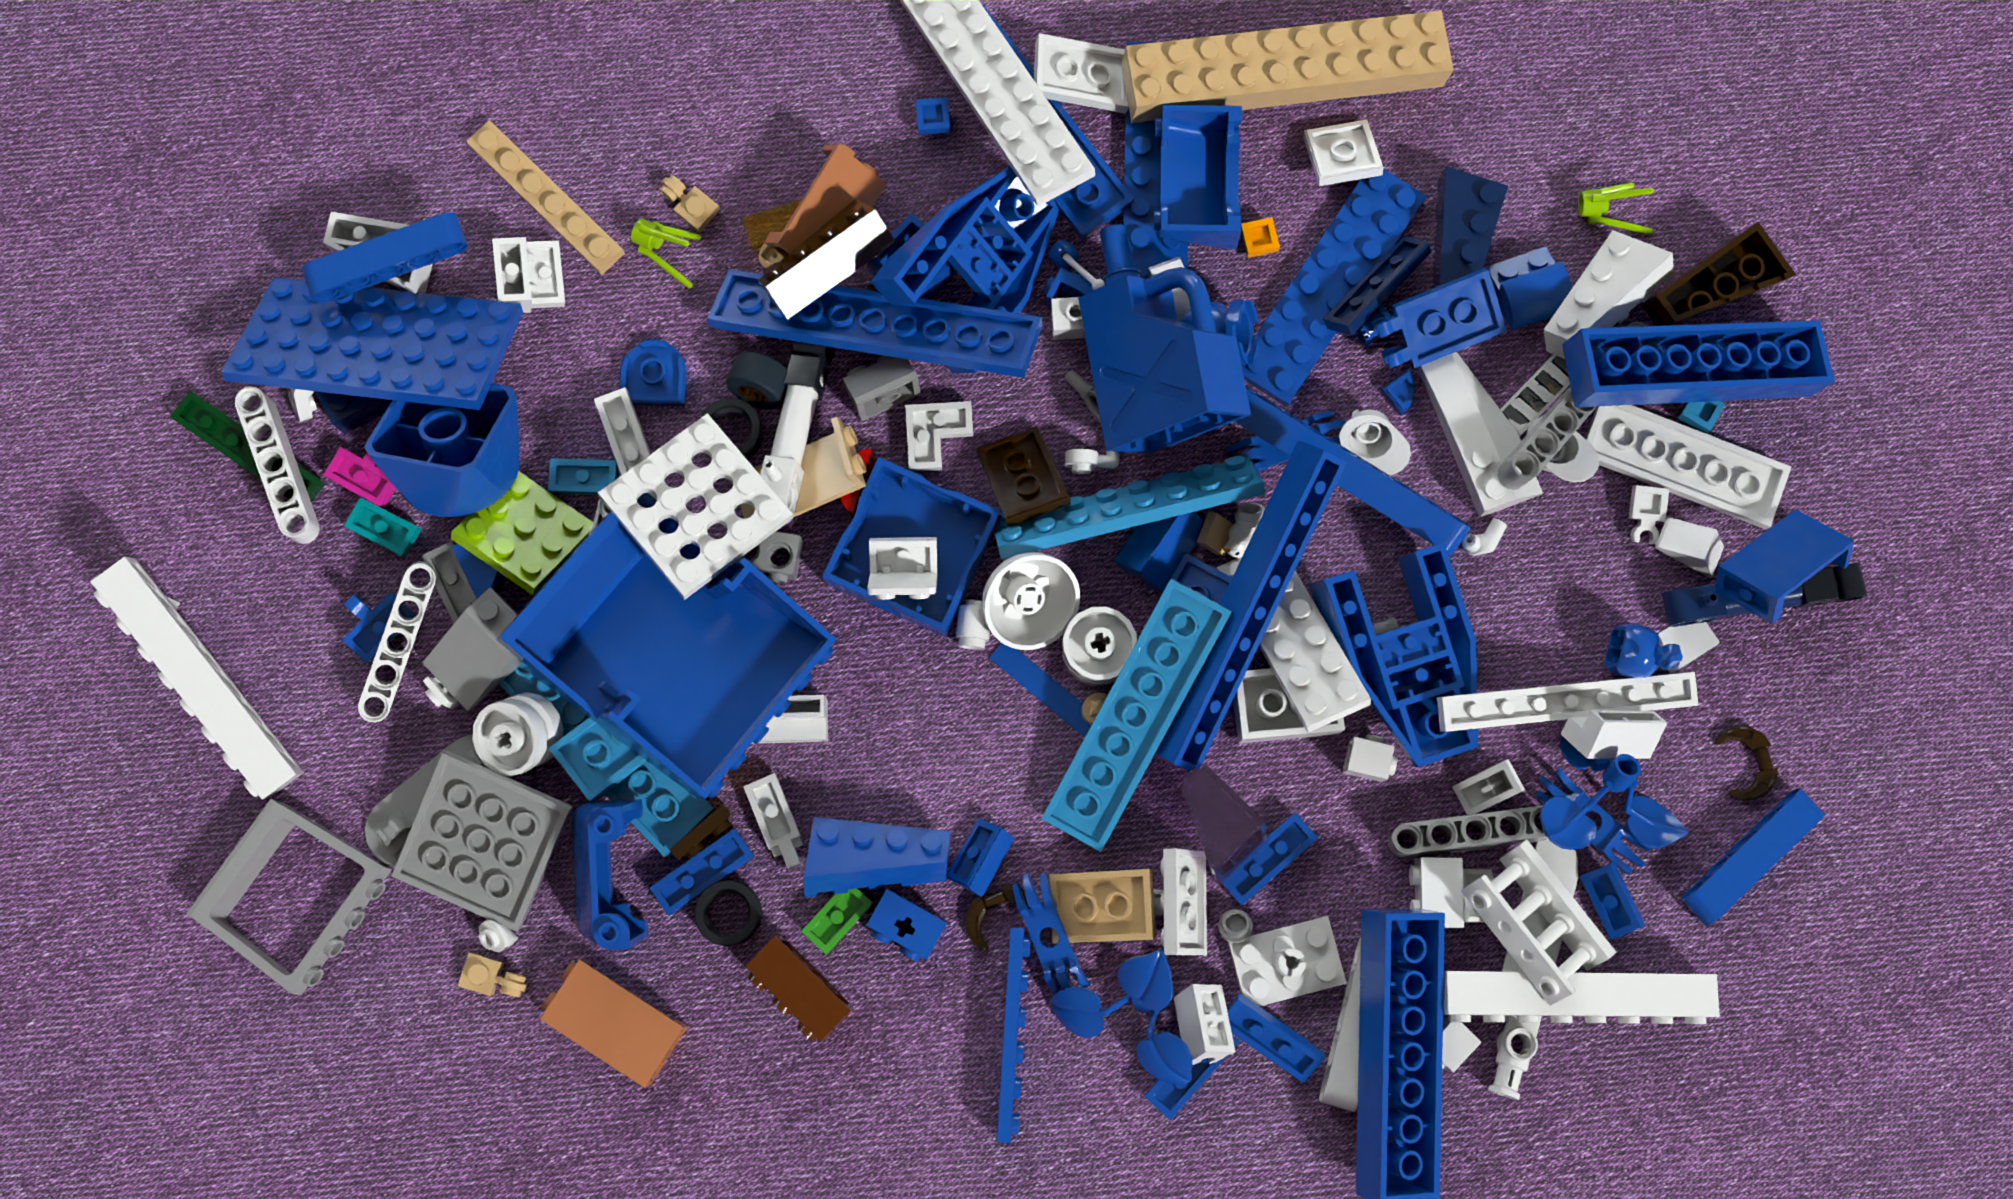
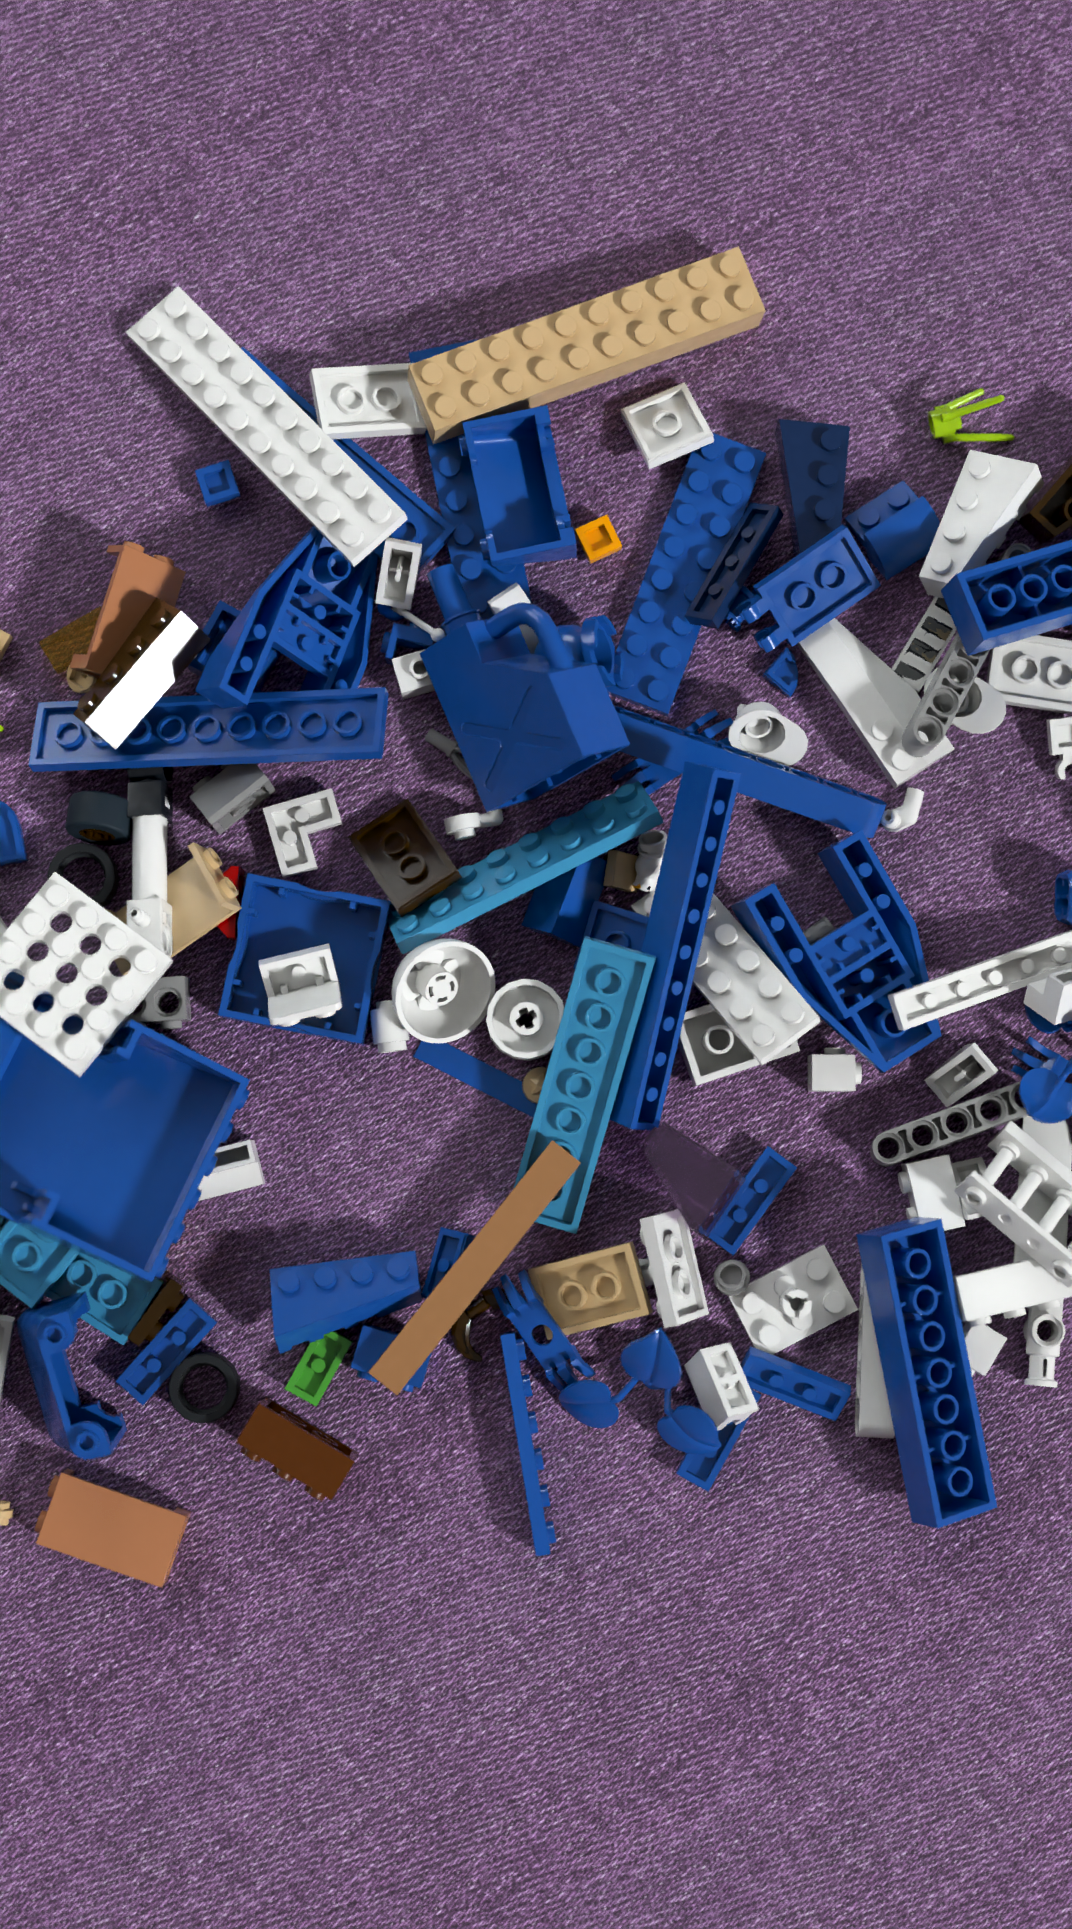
camera: 20 degrees left, 5 degrees up
(775, 819) = (230, 1278): white hinge -> none
(1001, 859) = (474, 1267): none -> medium nougat tile
(1075, 223) = (398, 573): none -> white slope

